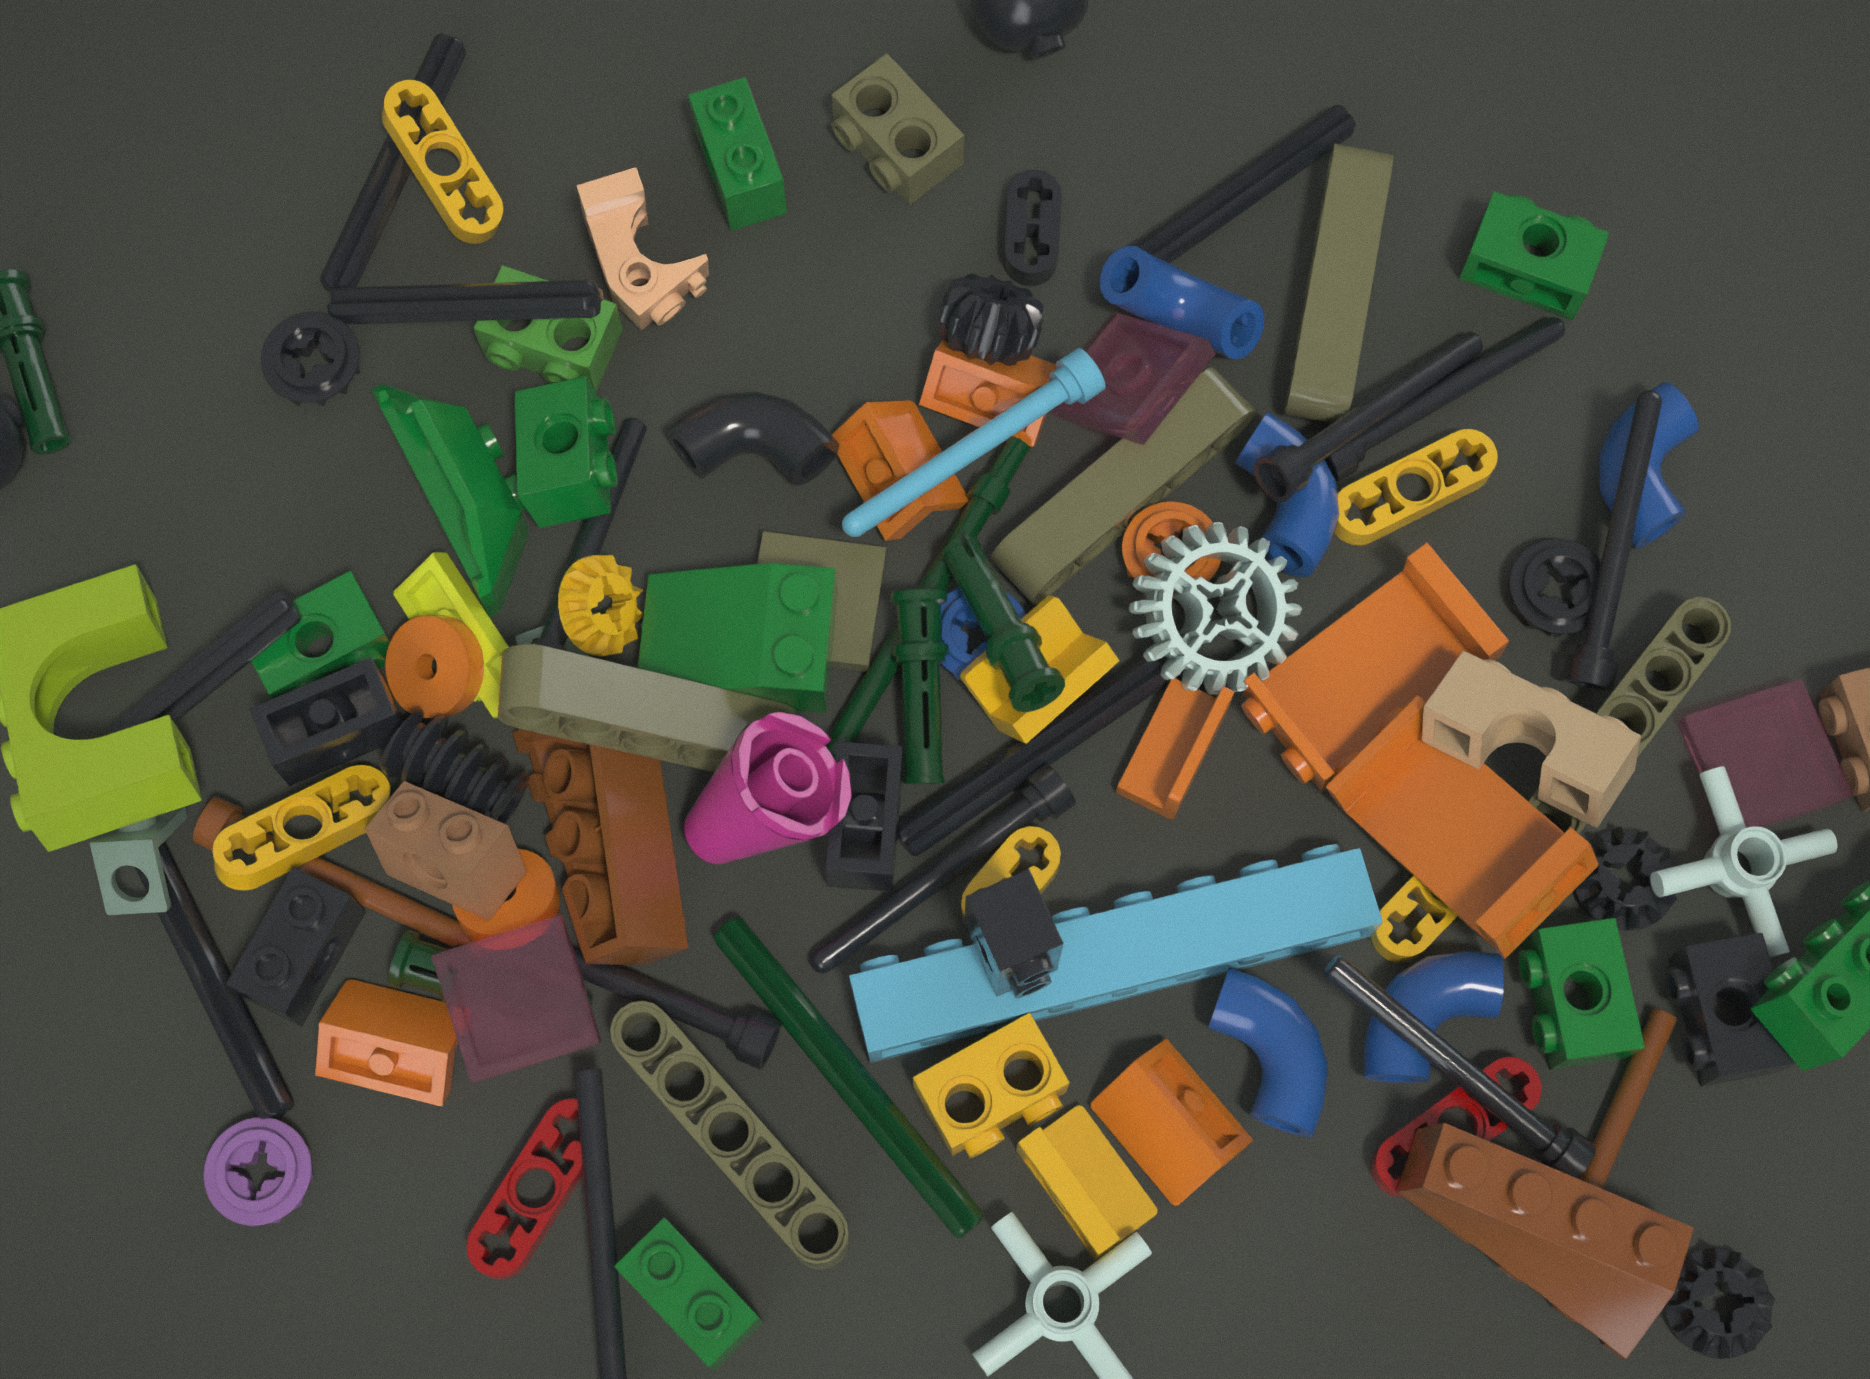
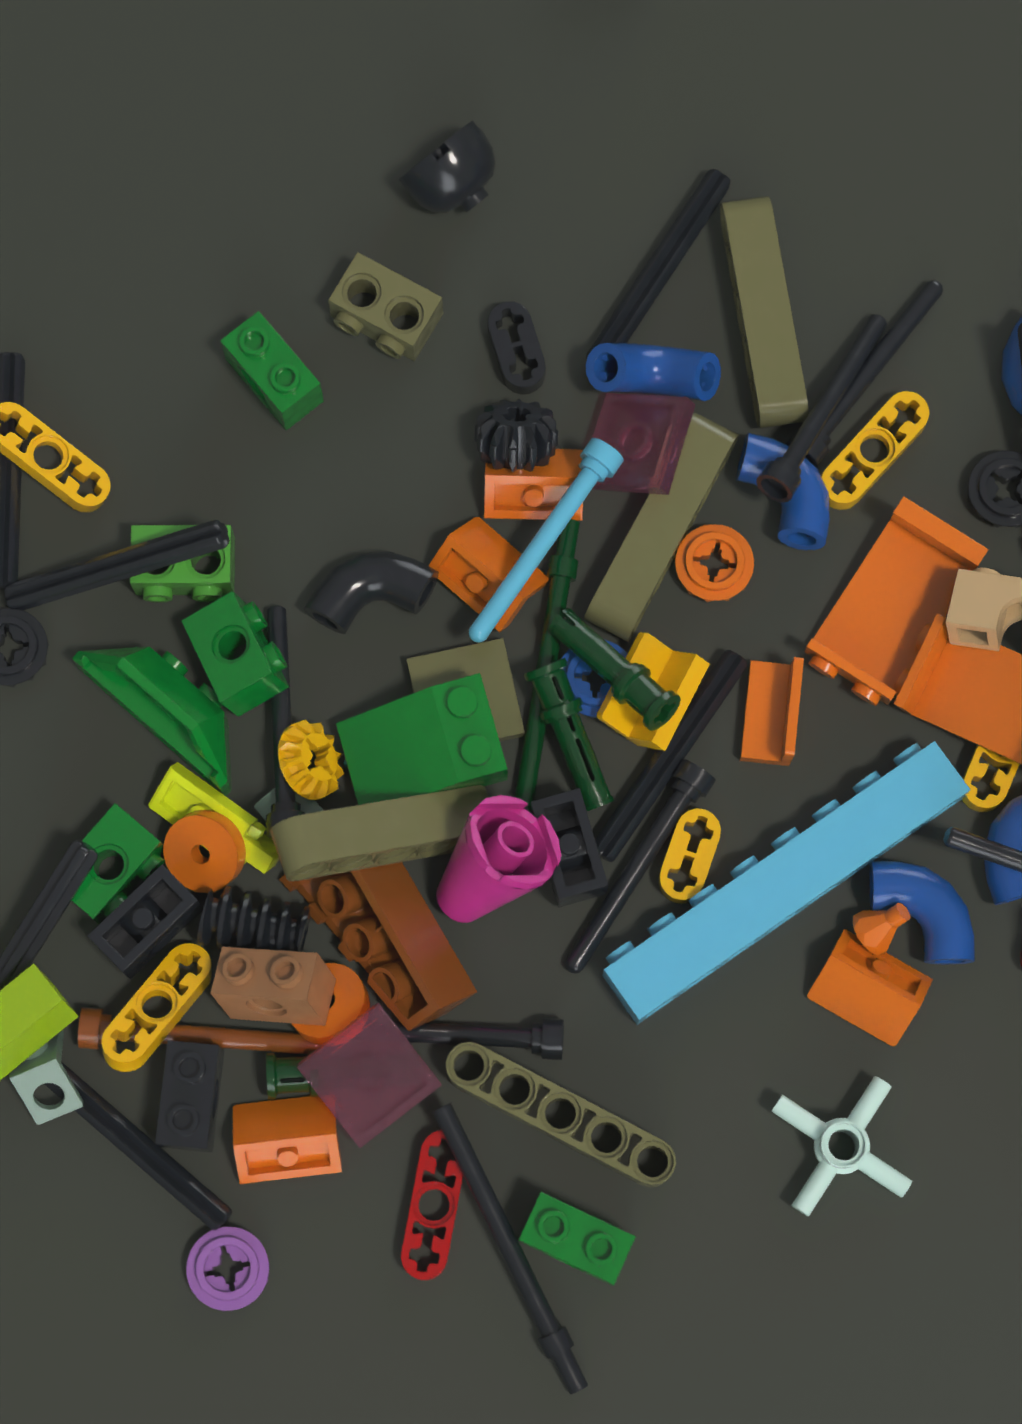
camera: 20 degrees left, 5 degrees up
(612, 214) = (200, 463): light nougat tile -> none
(849, 1077) = (626, 1040): dark green axle -> none
(981, 1071) = (724, 1003): yellow brick -> none
(1013, 935) = (717, 900): black brick -> none
(1086, 1181) = (825, 1052): yellow panel -> none
(1208, 1051) = (877, 927): none -> orange rock
(1248, 571) = (779, 562): light aqua gear -> none
(1549, 282) = (877, 252): green brick -> none

